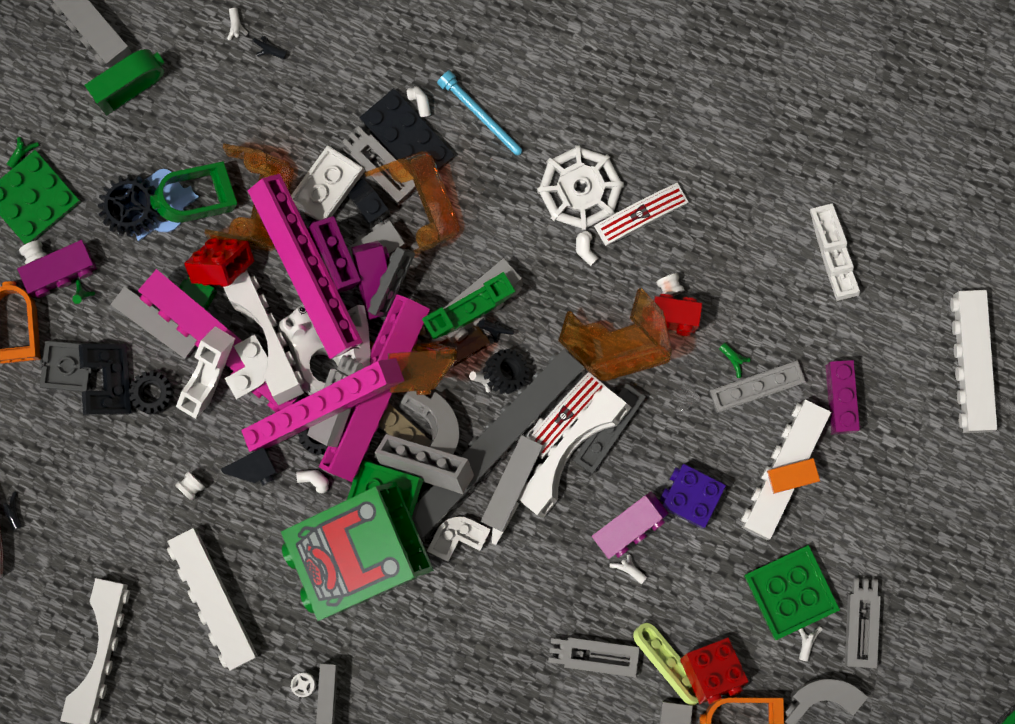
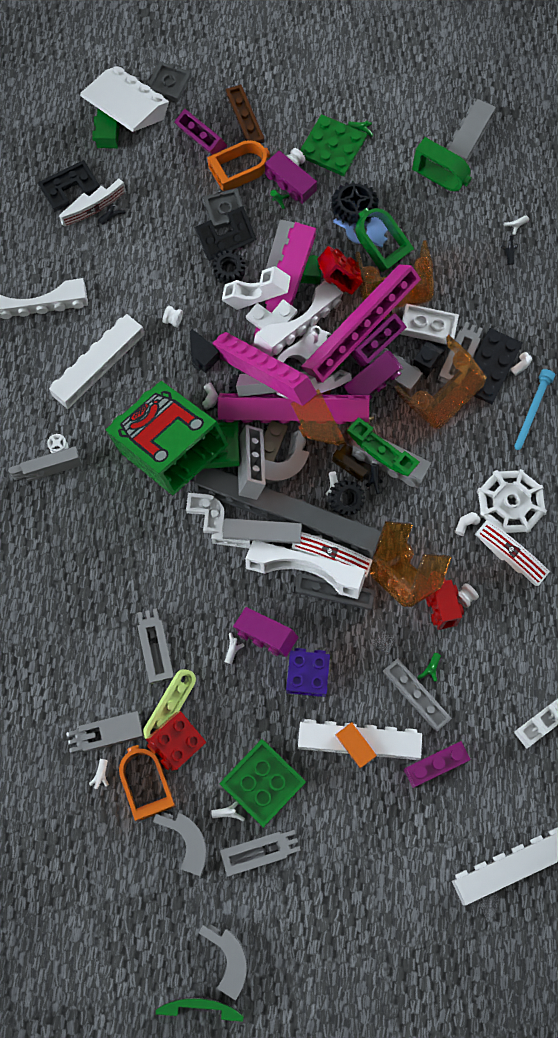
camera: 70 degrees right, 10 degrees down
(391, 282) = (376, 385): dark grey plate -> none
(977, 696) = (236, 959): none -> light grey arch

